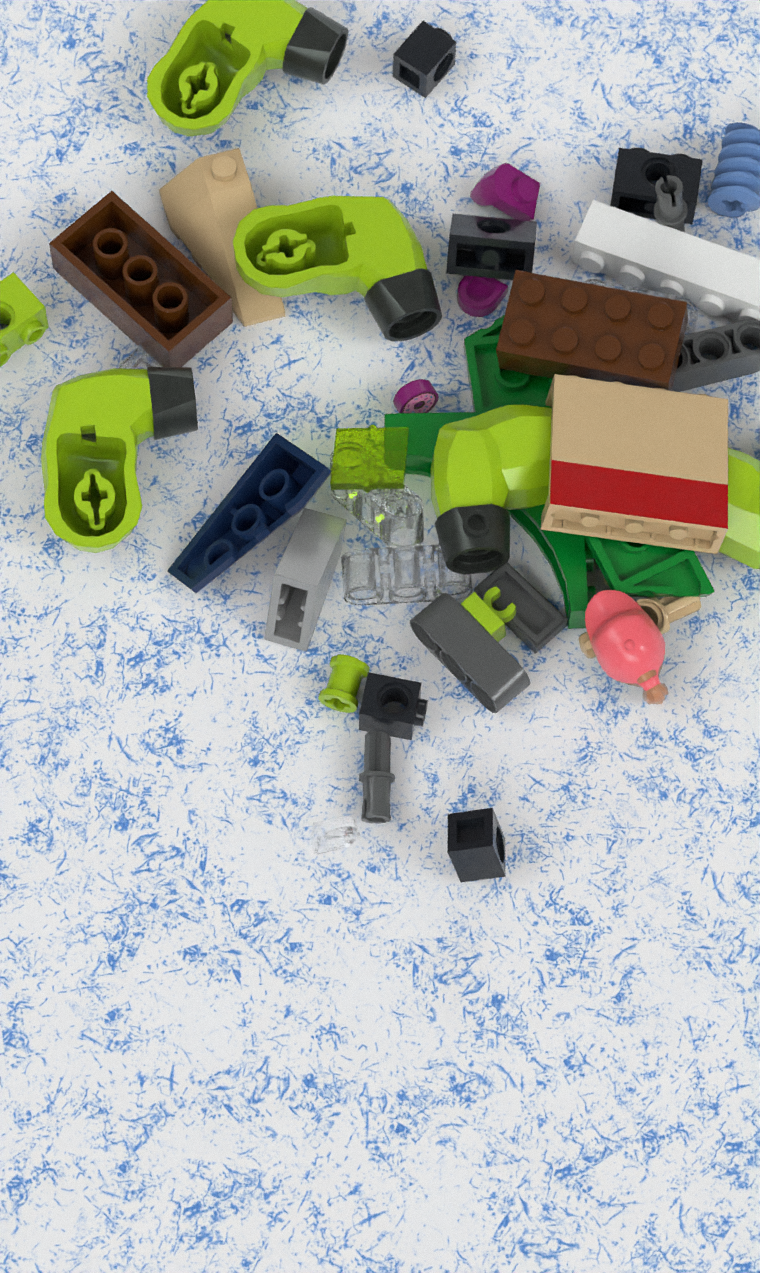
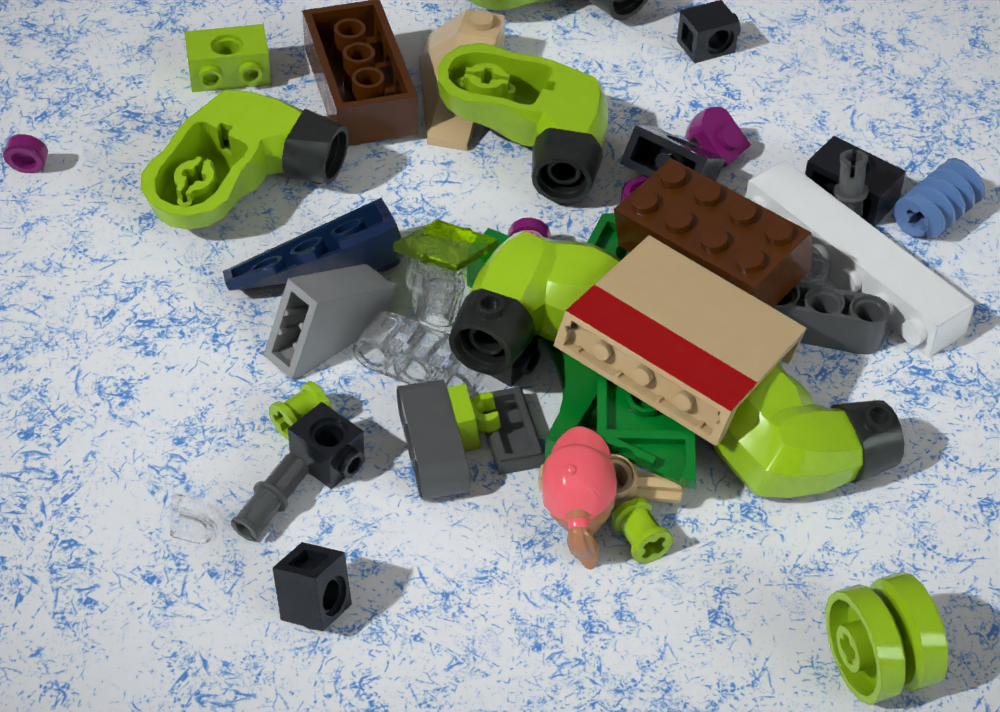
camera: 30 degrees right, 20 degrees down
(688, 651) = (641, 530): none -> lime bush

